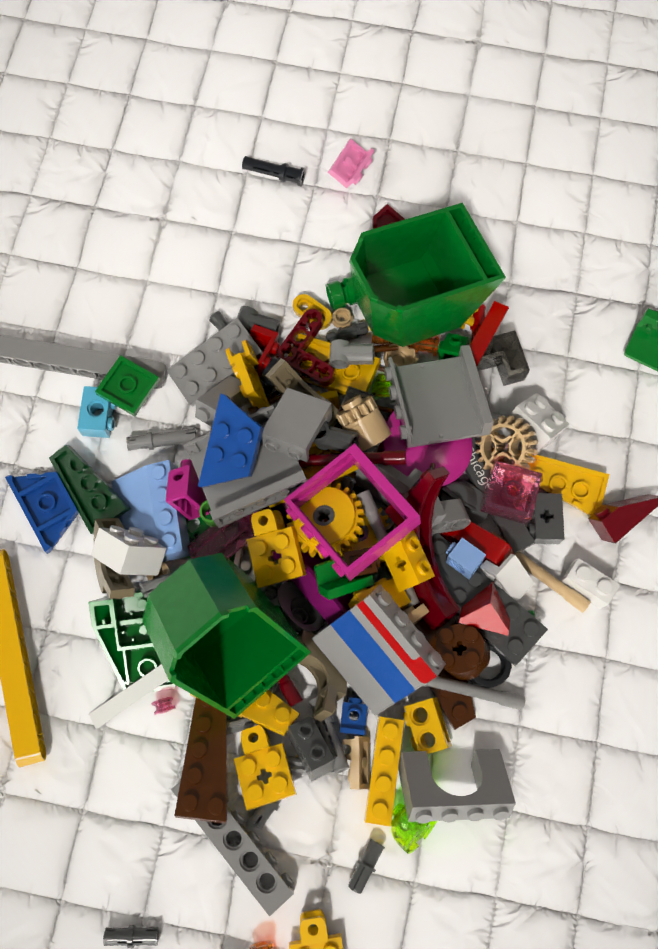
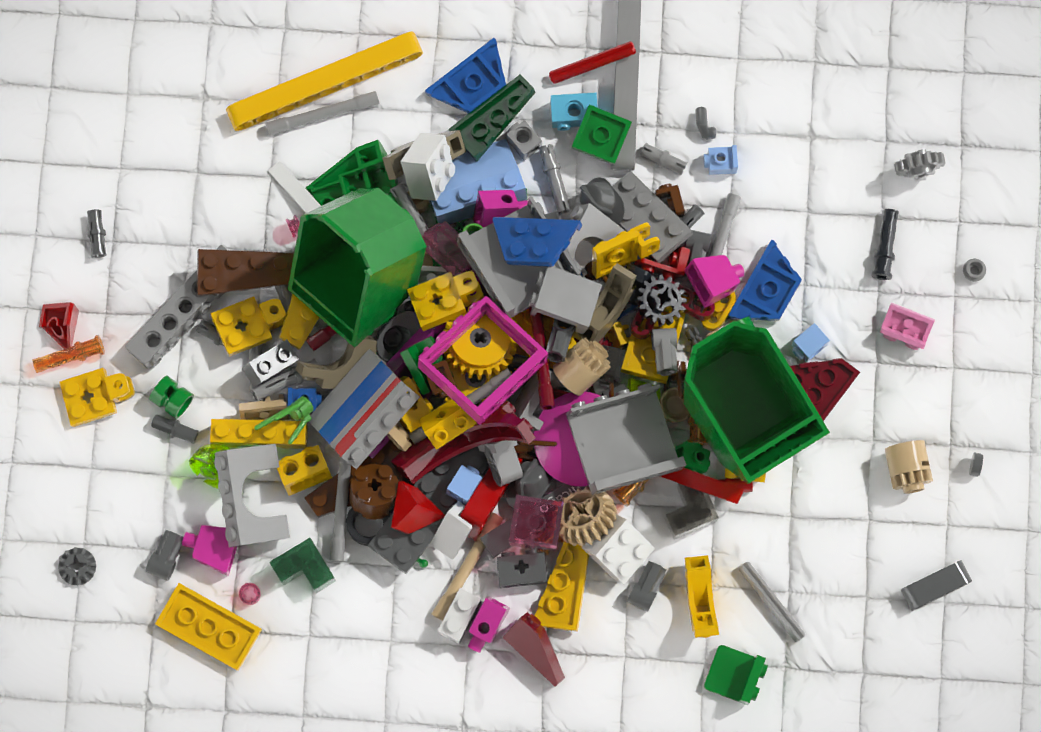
camera: 85 degrees right, 5 degrees up
(49, 703) = (286, 123): none -> light grey piece
(52, 387) = (592, 62): none -> red axle
(116, 453) = (525, 149): none -> light grey brick
(134, 301) = (702, 124): none -> dark grey arm
(160, 340) = (663, 158): none -> light grey pin
(172, 289) = (716, 167): none -> light blue brick
(183, 397) = (604, 198): none -> dark grey piece
(200, 334) = (675, 201): none -> reddish brown bracket
(207, 127) = (919, 164): none -> light grey gear
(225, 293) = (728, 214): none -> light grey piece
(287, 304) = (713, 278): none -> dark pink torso
(298, 268) = (768, 288): none -> blue wing
(303, 349) = (650, 300): none -> gear
(307, 108) = (977, 264): none -> light grey plate
(338, 859) = (179, 399): none -> green wheel
(349, 236) = (809, 343): none -> light blue brick
(368, 723) = (298, 410): none -> bright green plant
(477, 175) = (909, 466): none -> tan gear
(478, 129) = (976, 464): none -> dark grey tile
(502, 839) = (211, 548): none -> dark pink torso
(510, 894) = (163, 561): none -> dark grey piece
(523, 735) = (303, 560): none -> clear green brick
(550, 792) = (243, 597): none -> clear pink bush
(574, 410) = (645, 590): none -> dark grey piece
(581, 174) = (936, 585): none -> dark grey beam
(585, 852) = (208, 626): none -> yellow plate
(586, 305) = (771, 601): none -> light grey axle
(586, 363) = (700, 596): none -> yellow arch
(599, 553) = (493, 614): none -> dark pink torso

